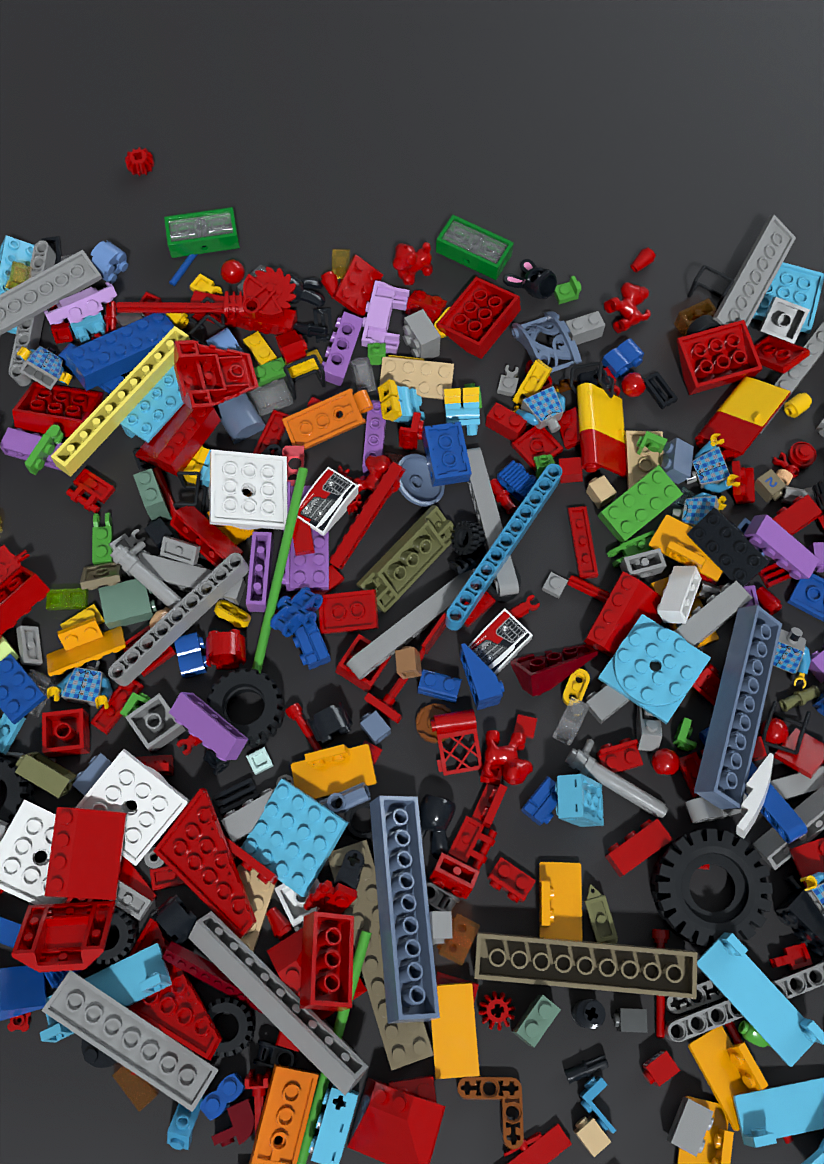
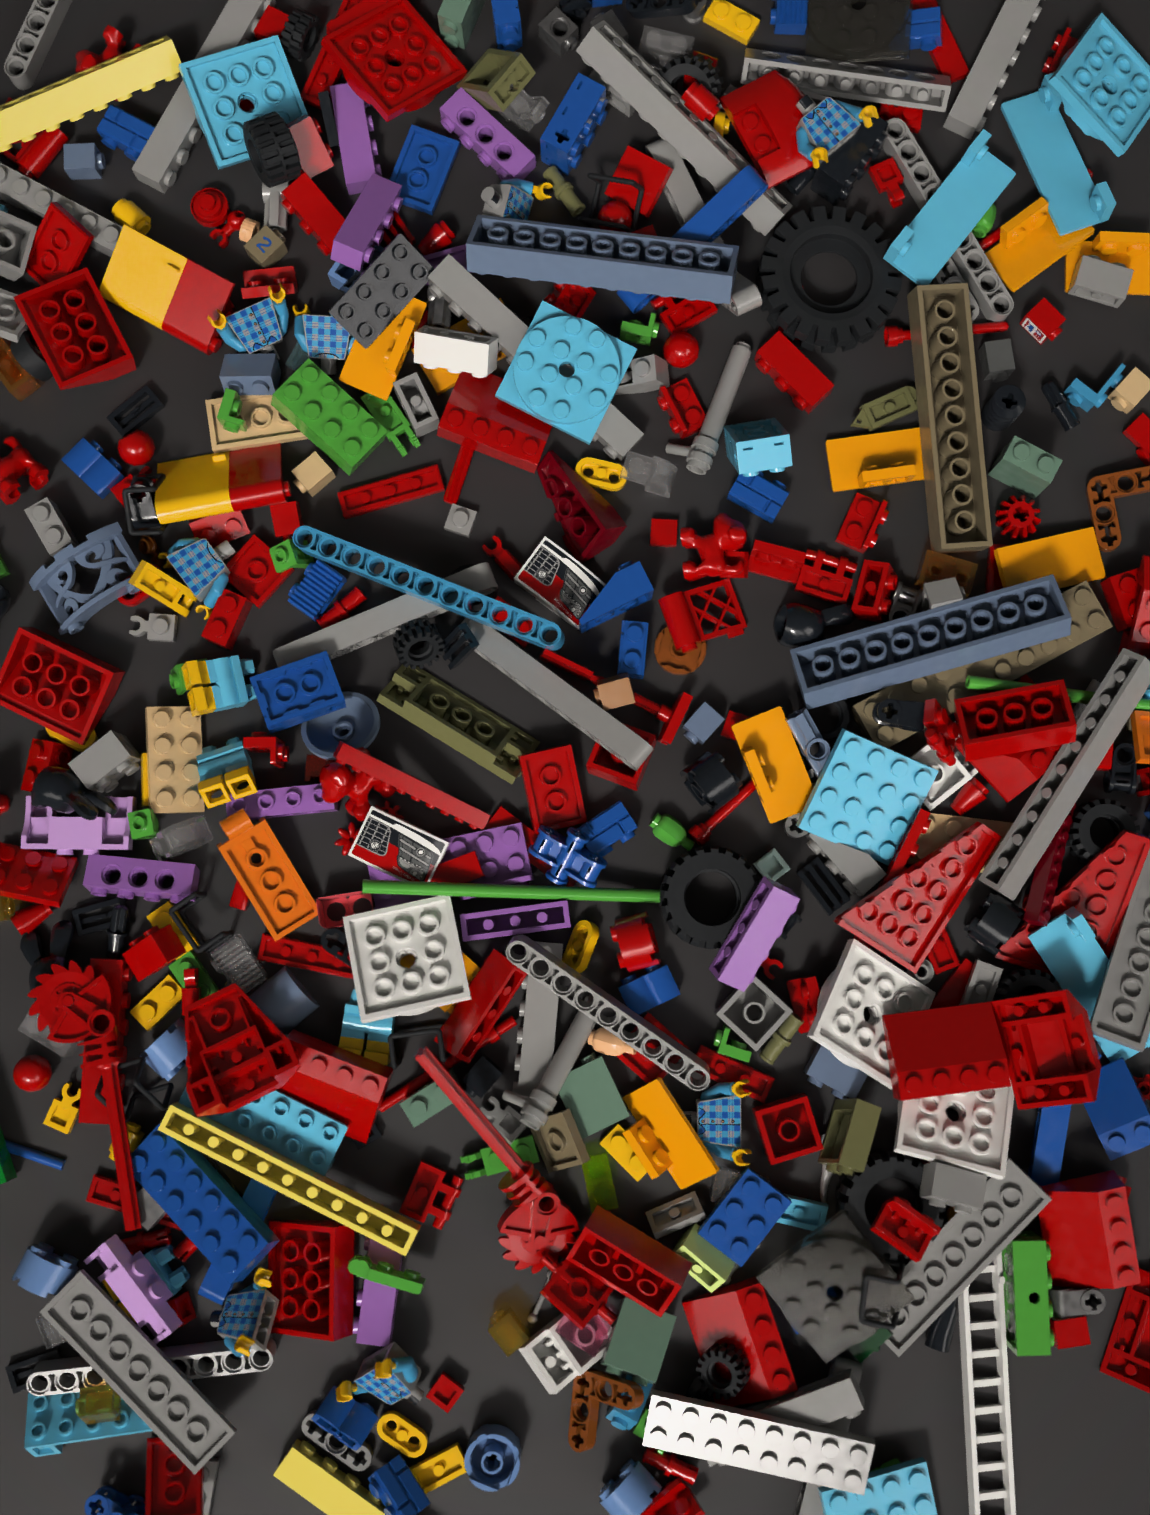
camera: 95 degrees left, 15 degrees up
(54, 551) = (529, 1224): none -> red piece
(132, 742) = (781, 1038): none -> olive pin
(180, 550) = (506, 1038): light grey plate -> none
(260, 365) = (191, 992): none -> red bar
(301, 691) = (670, 831): none -> bright green plant
(404, 304) = (66, 793): none -> black piece
(757, 789) = (709, 226): white slope -> none

